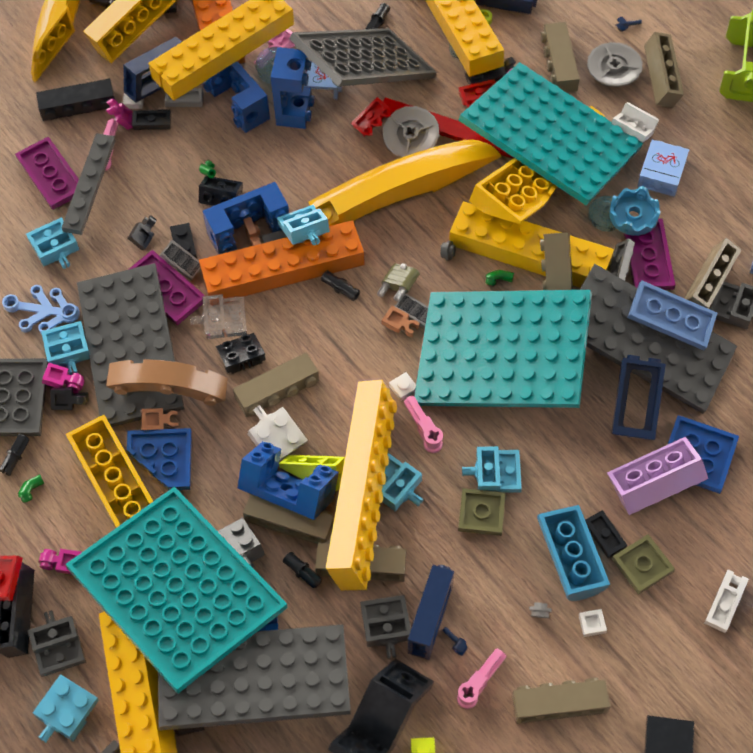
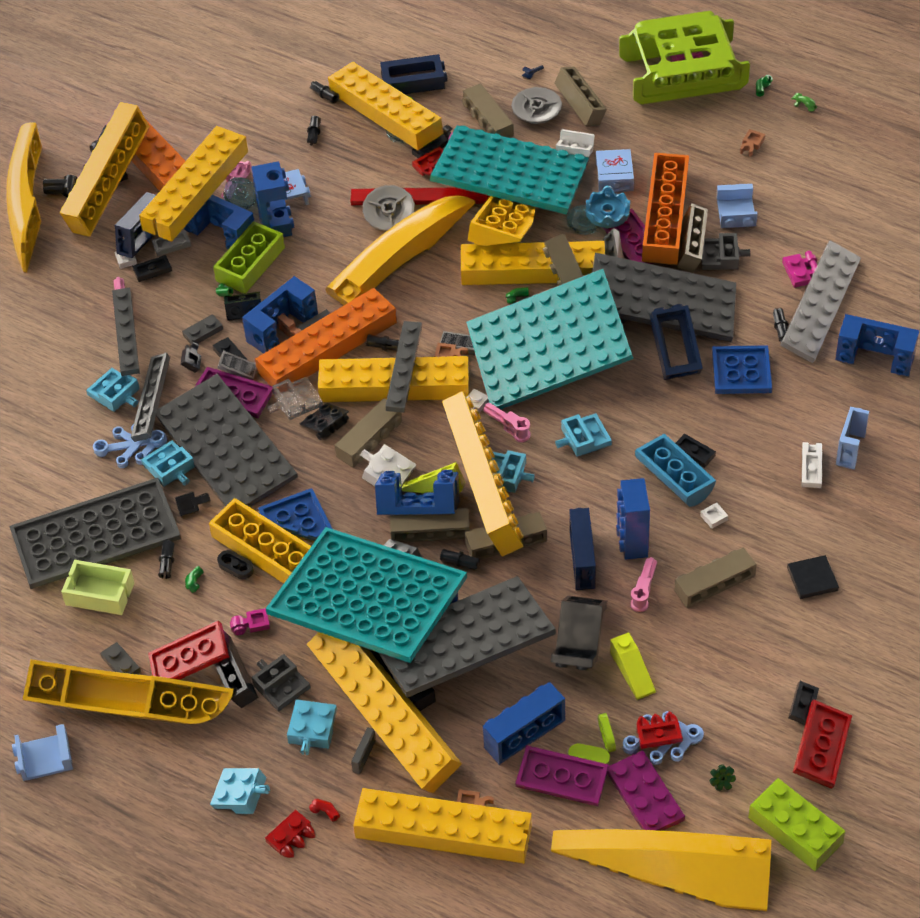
camera: 20 degrees left, 10 degrees down
(49, 172) = (81, 337): magenta plate -> none
(58, 376) = (175, 487): dark pink plate -> none
(75, 99) = (74, 273): black brick -> none
(78, 488) = (237, 564): none -> black plate
(81, 265) = (150, 397): none -> dark grey plate
(122, 114) = (123, 271): dark pink plate -> none
(154, 419) = (277, 490): nougat plate -> none
(167, 378) = (275, 451): medium nougat brick -> none
(169, 205) = (203, 329): none -> dark grey plate
(247, 141) = (249, 257): none -> lime brick
(304, 225) = (336, 301): medium azure plate -> none
(329, 332) = (371, 377): none -> yellow brick
(339, 325) = (403, 366): none -> dark grey plate
(362, 56) = (323, 156): dark grey plate -> none
(371, 117) = (348, 206): red plate -> none
(386, 622) = (548, 572): dark grey plate -> none
(400, 279) = (434, 321): olive piece -> none
(448, 250) = (464, 287): dark grey plate -> none
(460, 644) = (615, 567): dark blue hand -> none
(481, 512) = (587, 468): olive plate -> none
(494, 603) = (633, 518): none -> blue brick
(540, 610) = (668, 521): light grey plate -> none
(643, 564) = (734, 461): olive plate -> none
(658, 475) = (717, 392): lavender slope -> none
(672, 315) = (675, 271): medium blue plate -> none
(697, 231) = (665, 209): none -> orange brick

